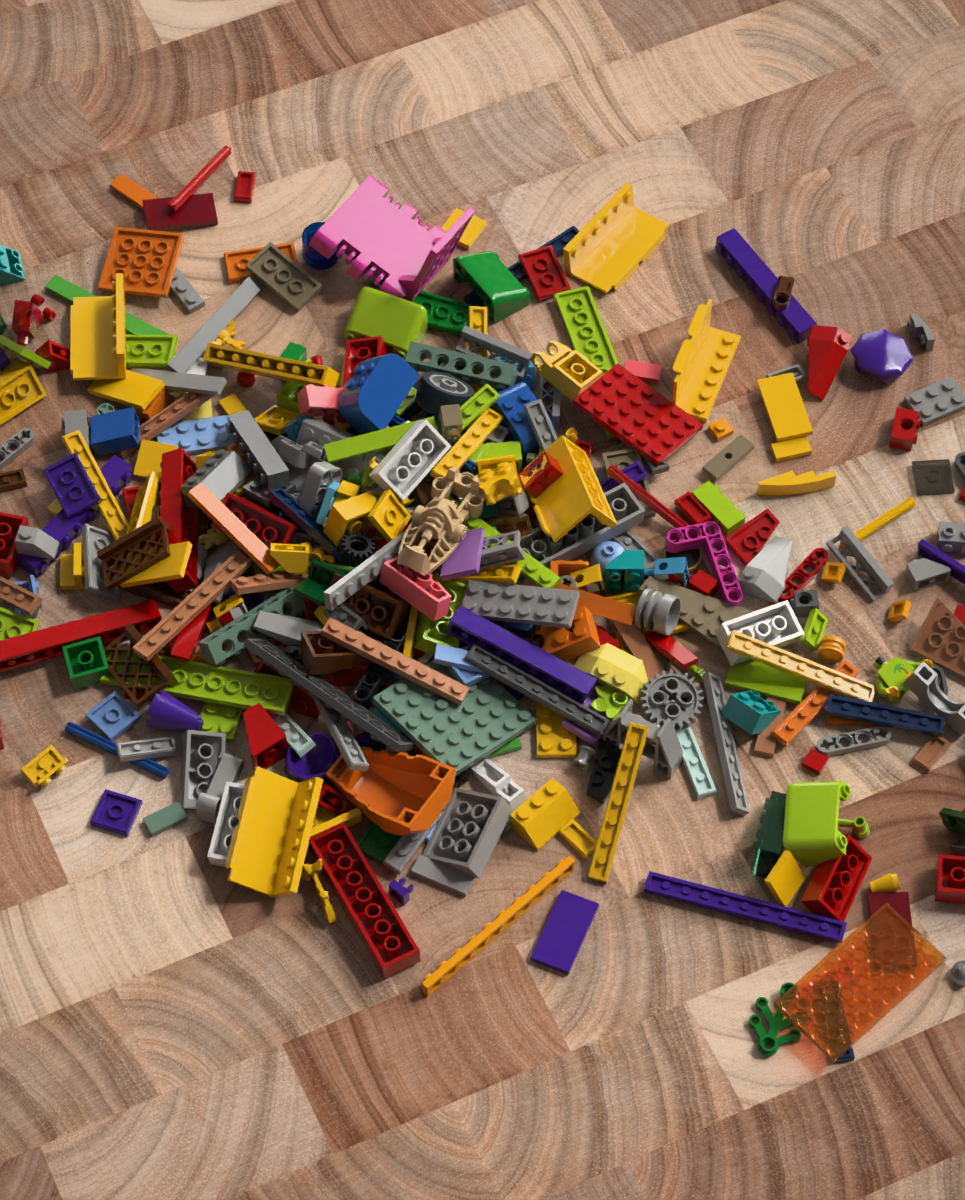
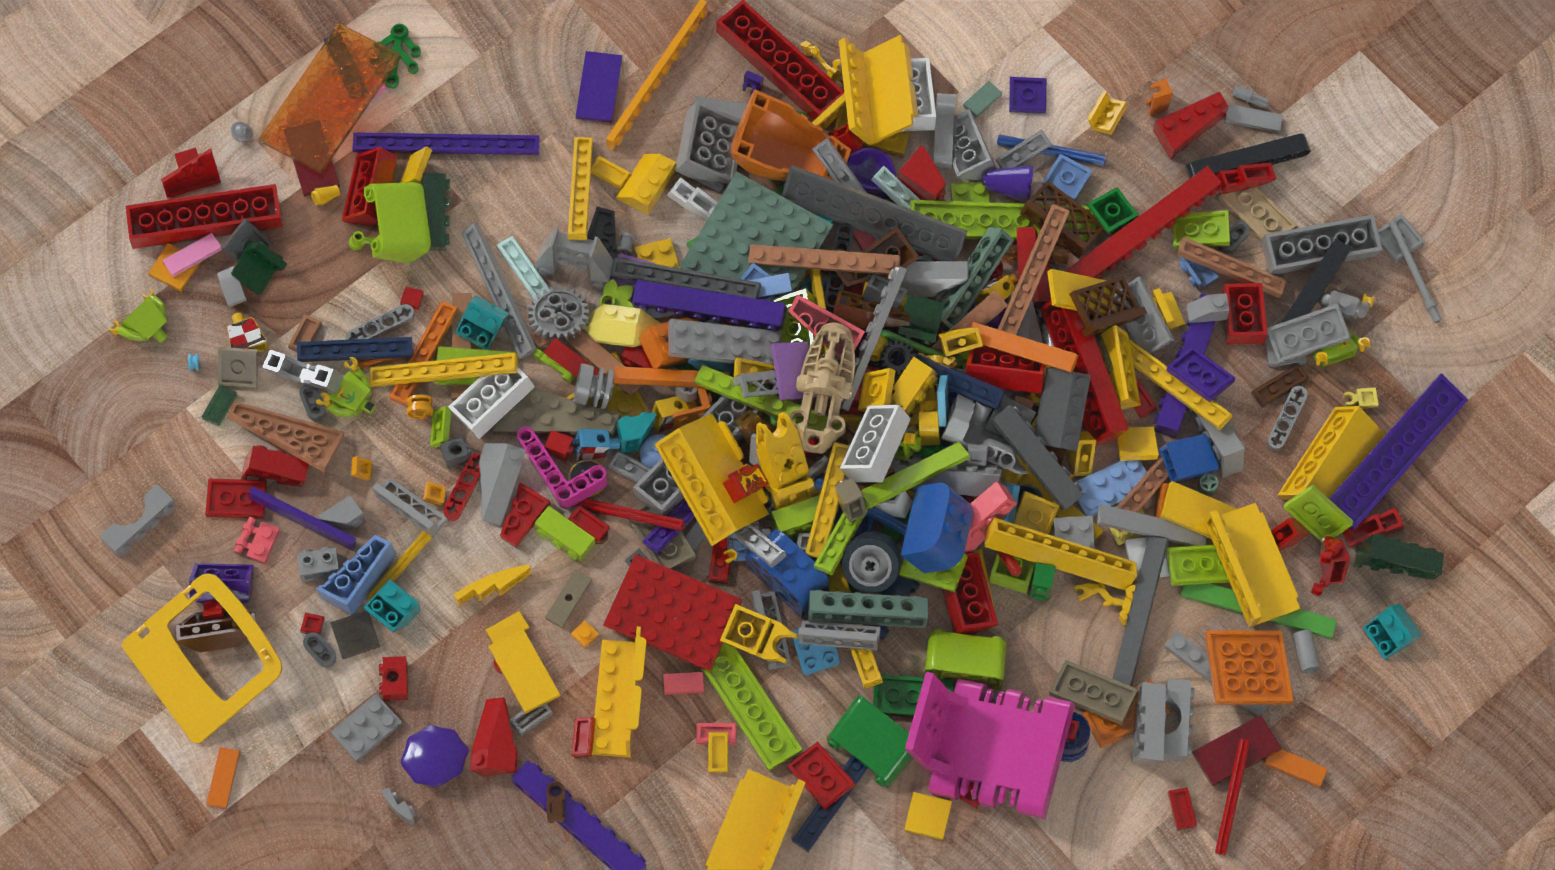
camera: 160 degrees right, 10 degrees up
(84, 267) = (1306, 651): none -> light grey pin
(228, 228) = (1176, 743): none -> light grey arch
(247, 235) = (1150, 724): none -> light grey wedge
(249, 392) = (1075, 530): none -> light grey brick
(625, 328) = (703, 728): none -> coral tile
(628, 310) = (717, 751): none -> yellow tile
(744, 348) = (583, 737): none -> red tile
(894, 482) = (393, 607): none -> teal slope
(923, 514) = (357, 576): none -> medium blue wedge

